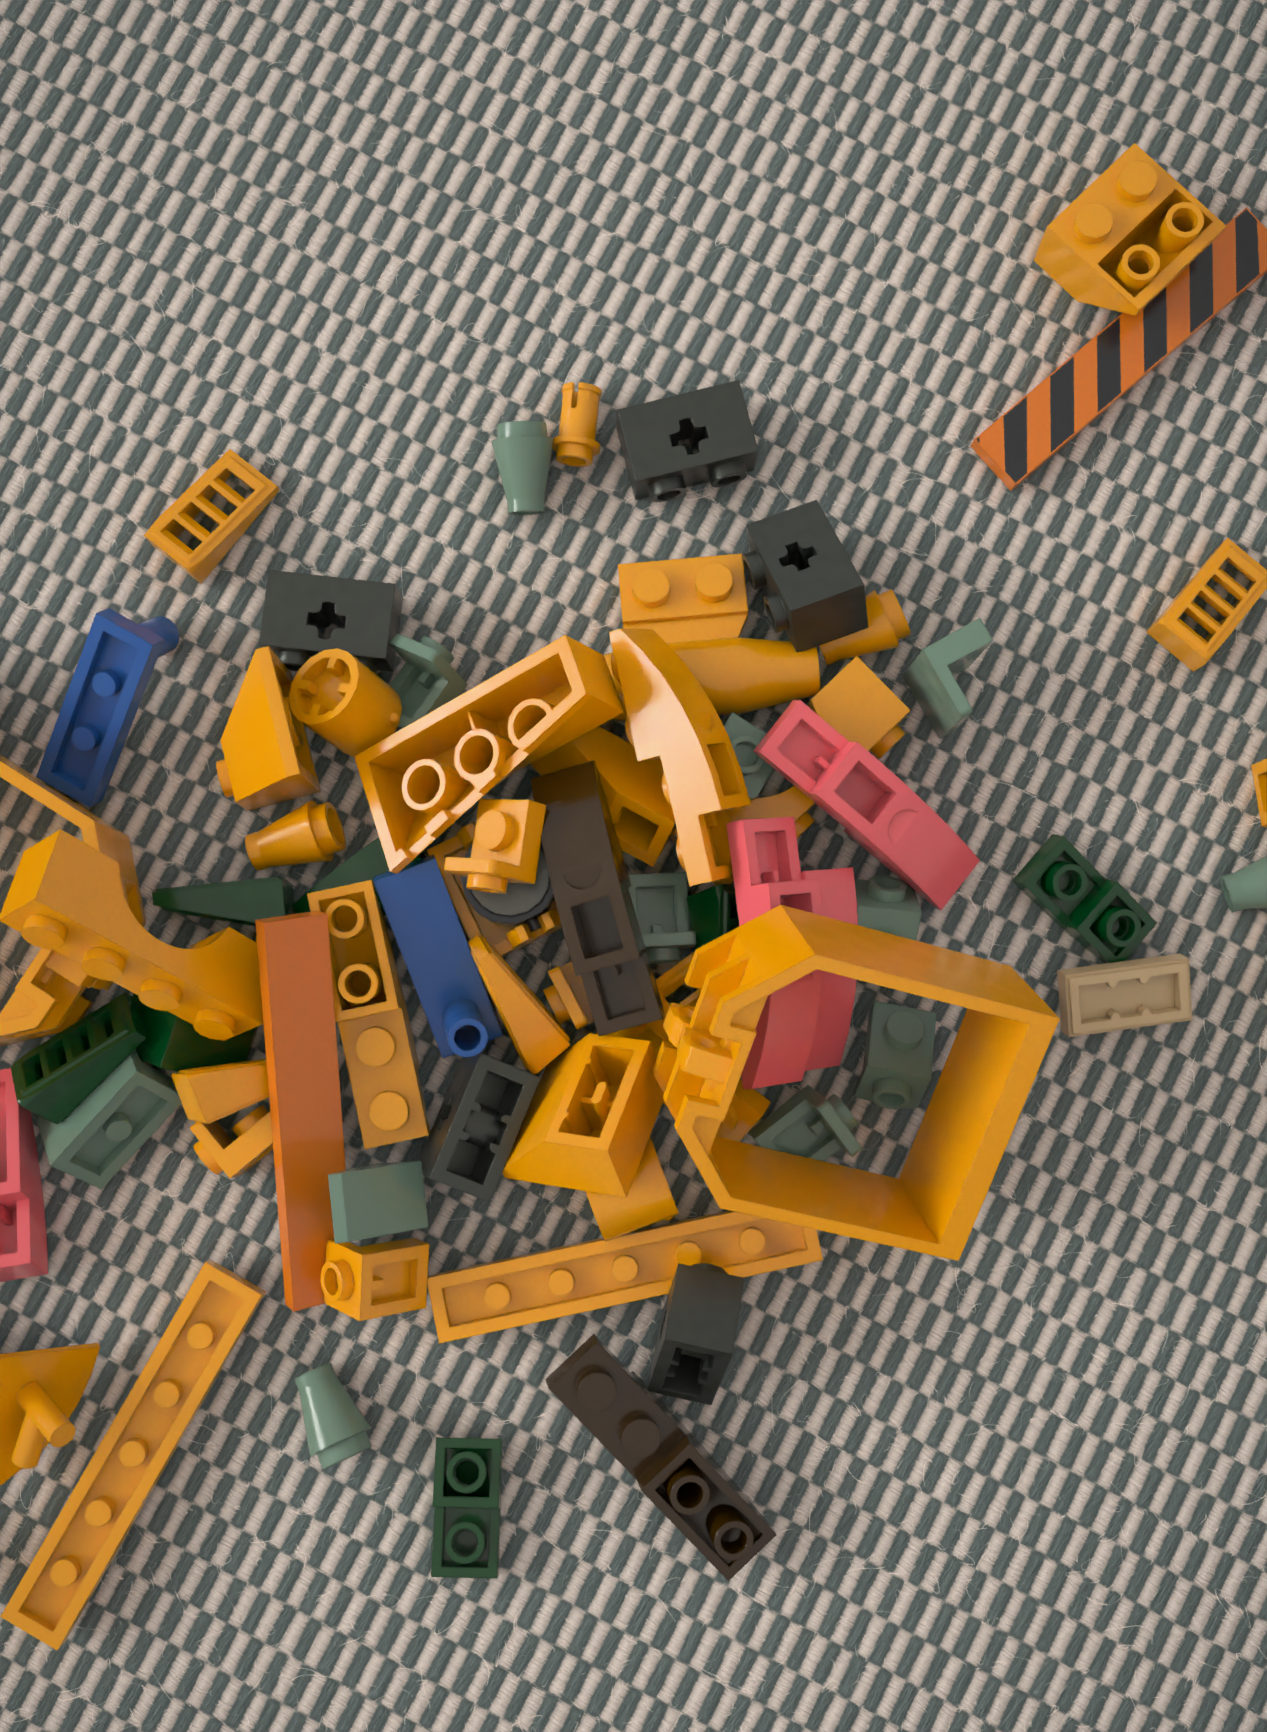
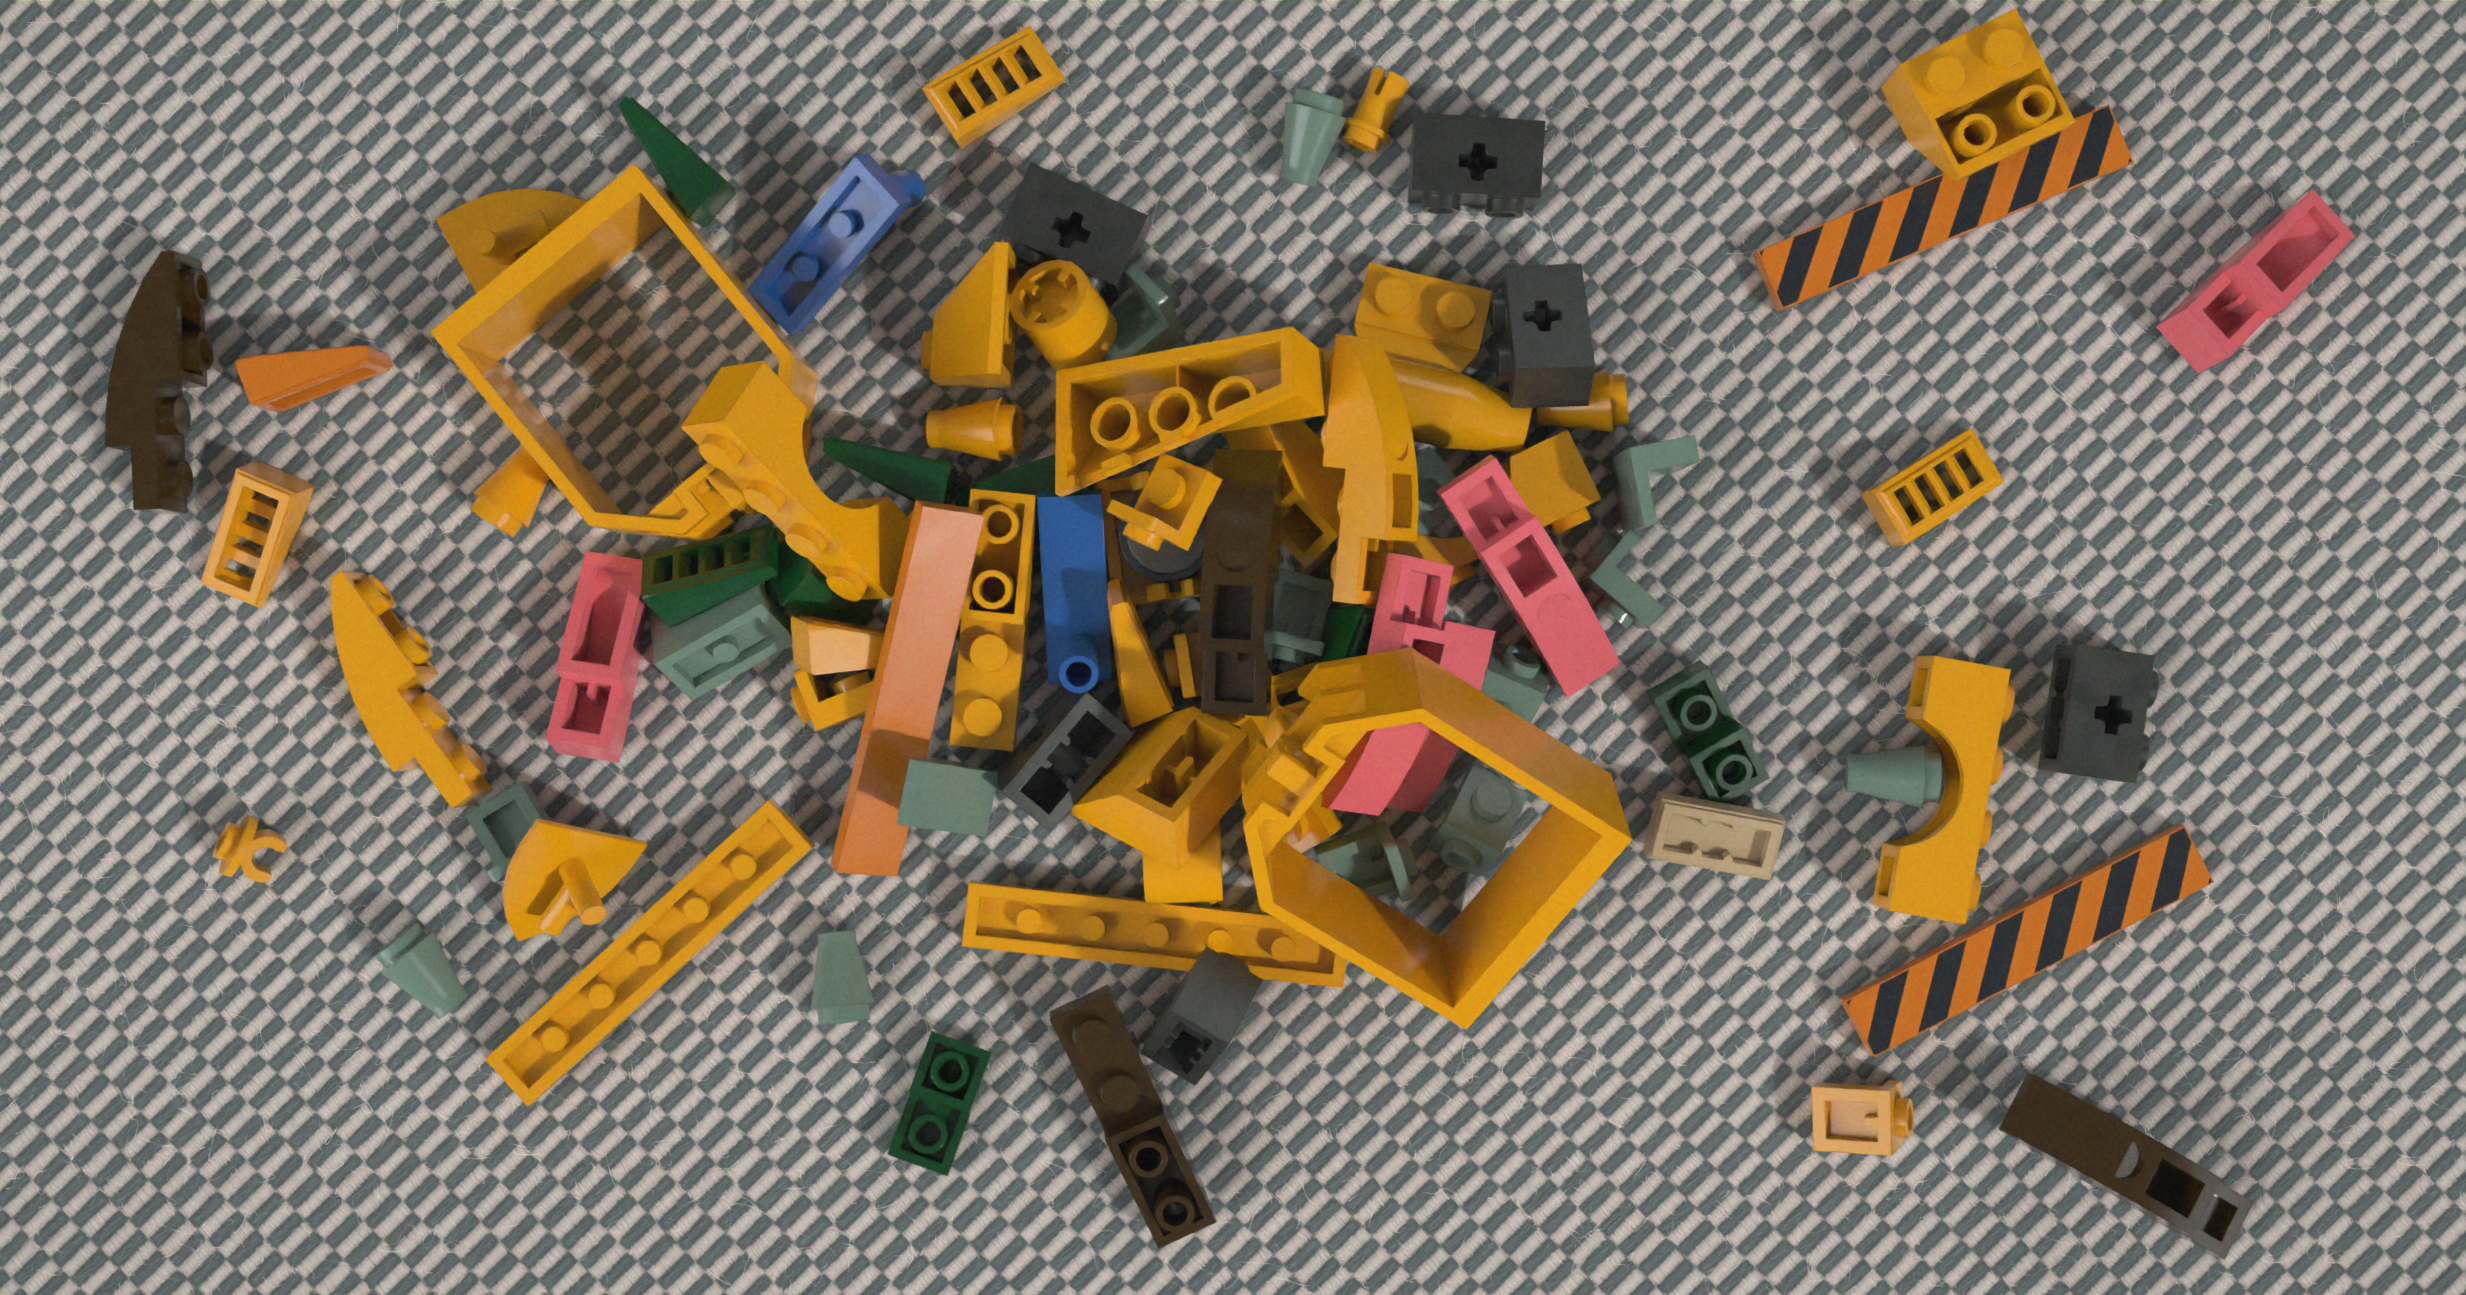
camera: 20 degrees right, 5 degrees up
(375, 1277) = (922, 866): light orange bracket -> none
(960, 798) = (1621, 597): none -> sand green bracket

